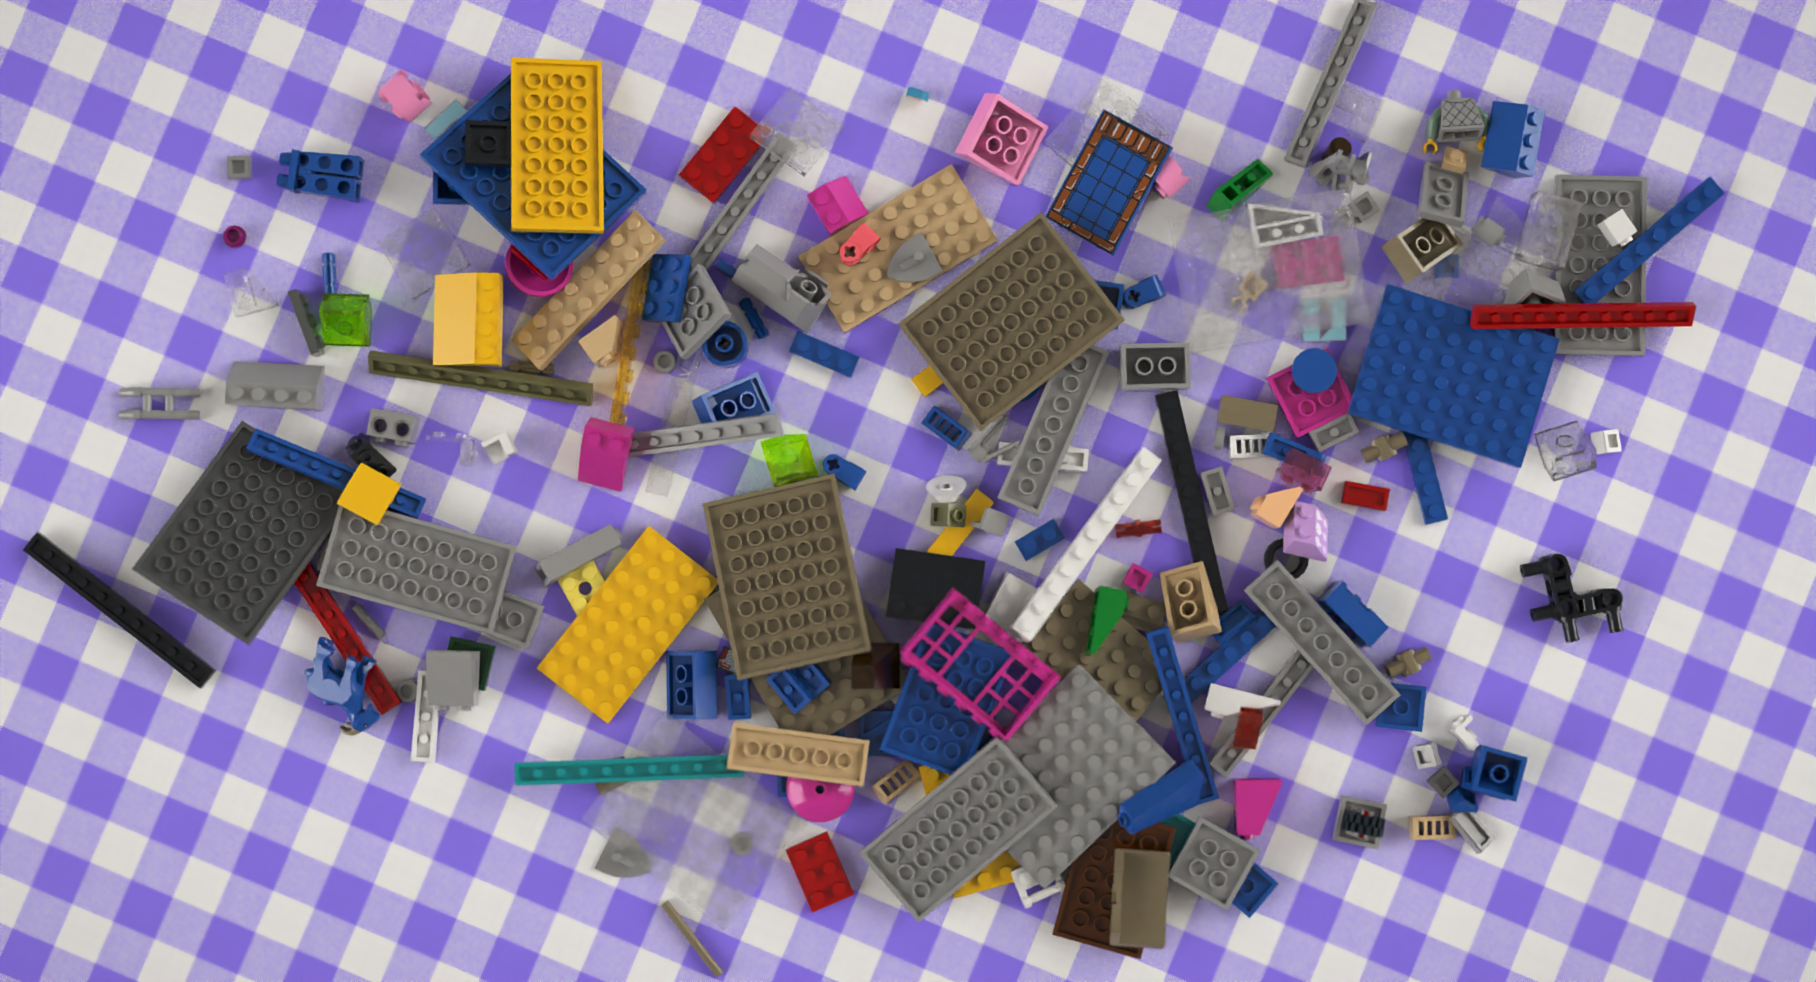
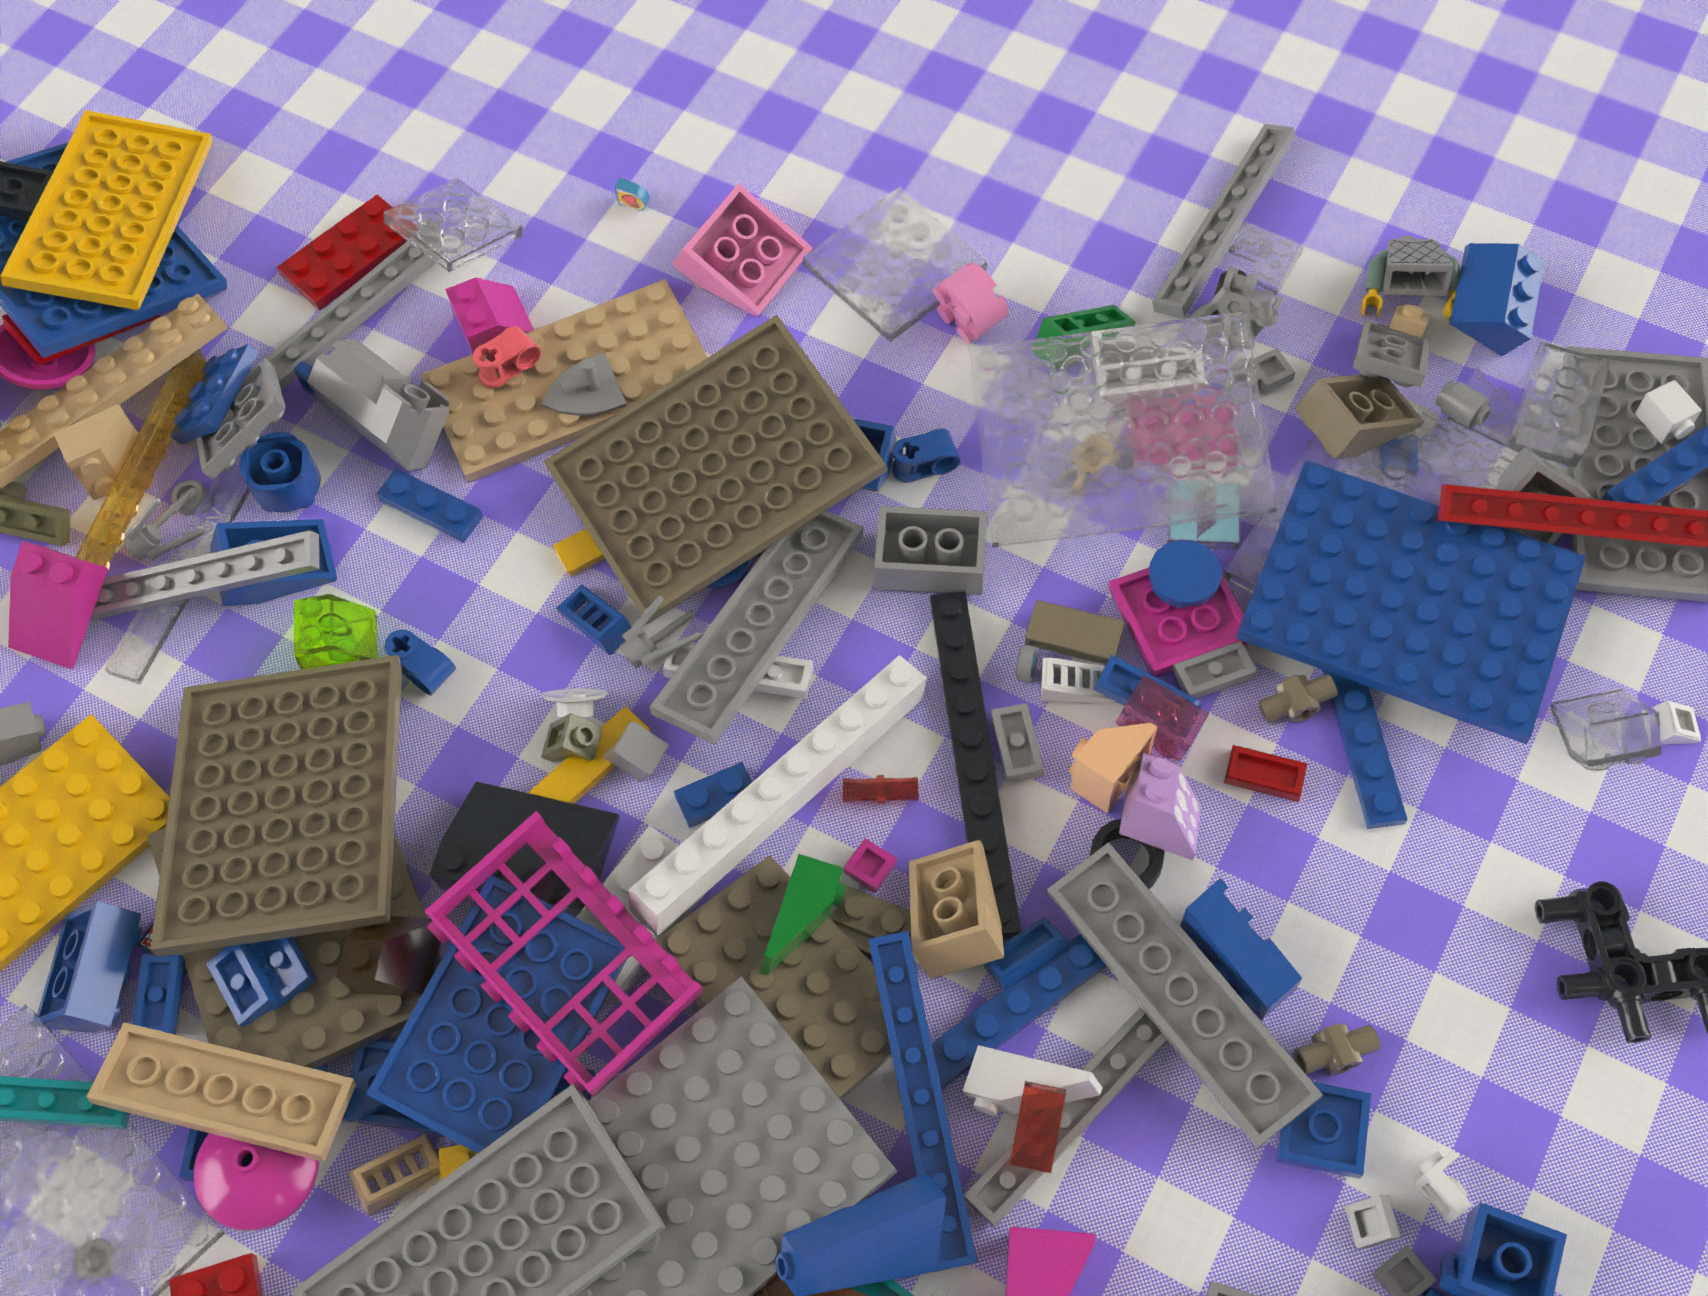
camera: 10 degrees right, 25 degrees down
(647, 397) = (146, 539): none -> light grey plant
(753, 318) = (336, 450): blue axle -> none
(1108, 182) = (888, 303): piece -> none

